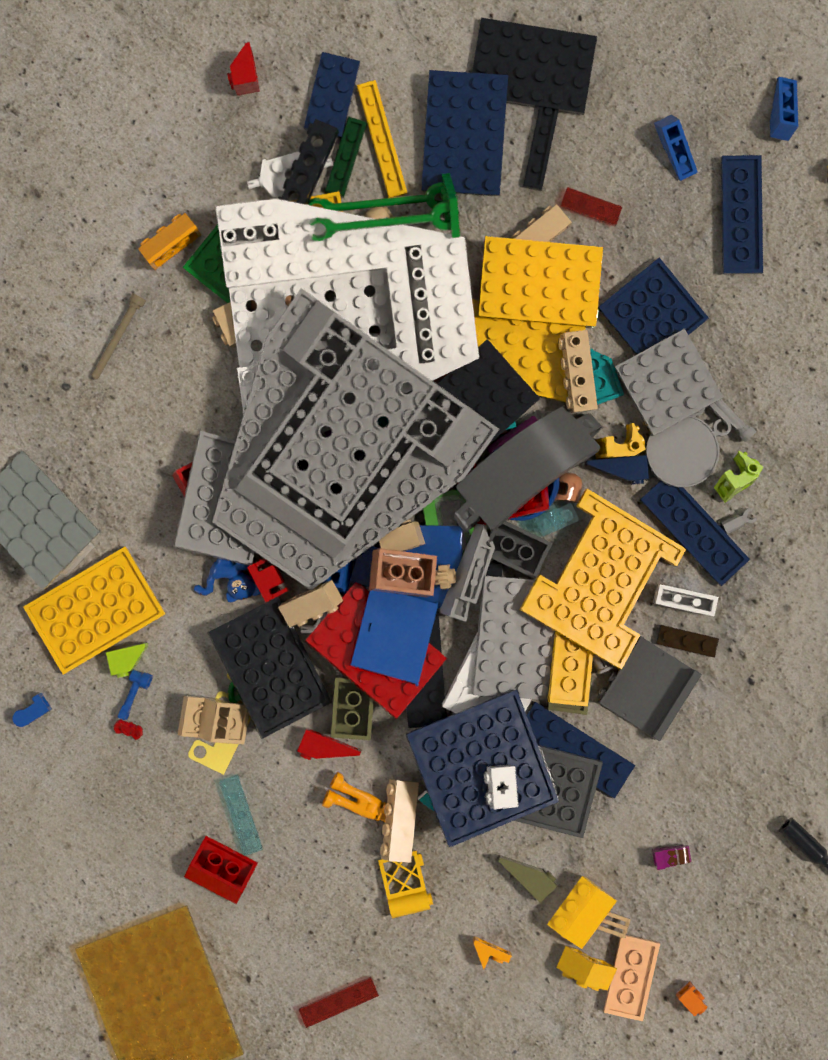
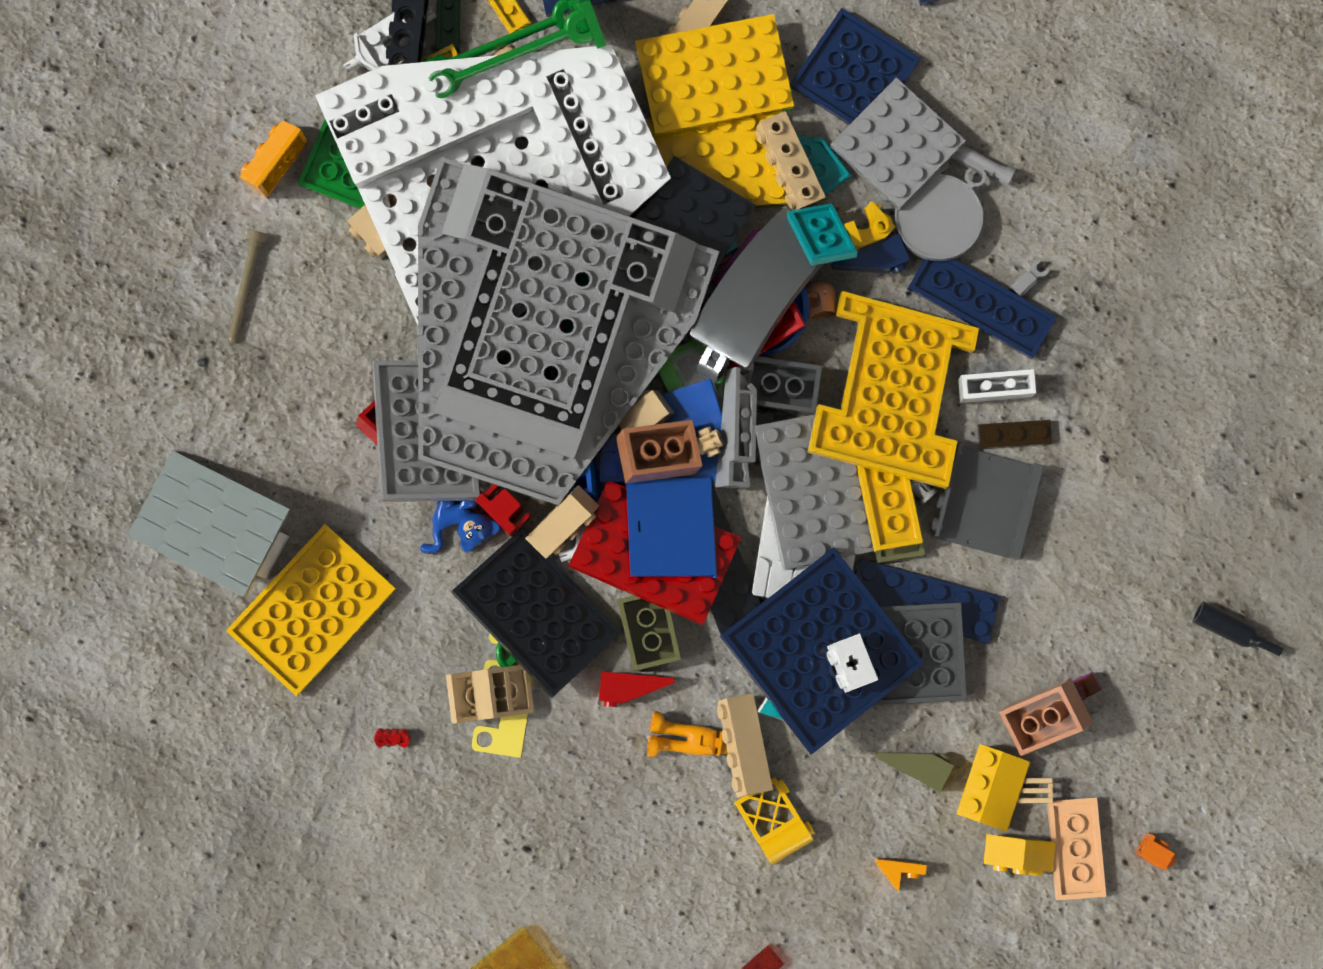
camera: 10 degrees left, 5 degrees down
(33, 712) = (273, 752): blue leg -> none
(125, 659) = (364, 655): lime slope -> none
(139, 680) = (388, 675): blue brick -> none
(220, 869) = (551, 870): red slope -> none
(241, 815) = (555, 798): clear light blue tile -> none
(556, 519) = (818, 339): clear light blue brick -> none
(584, 439) = (821, 234): none -> teal tile
(640, 871) = (1045, 717): none -> nougat brick
(732, 484) = (1022, 216): lime tile -> none

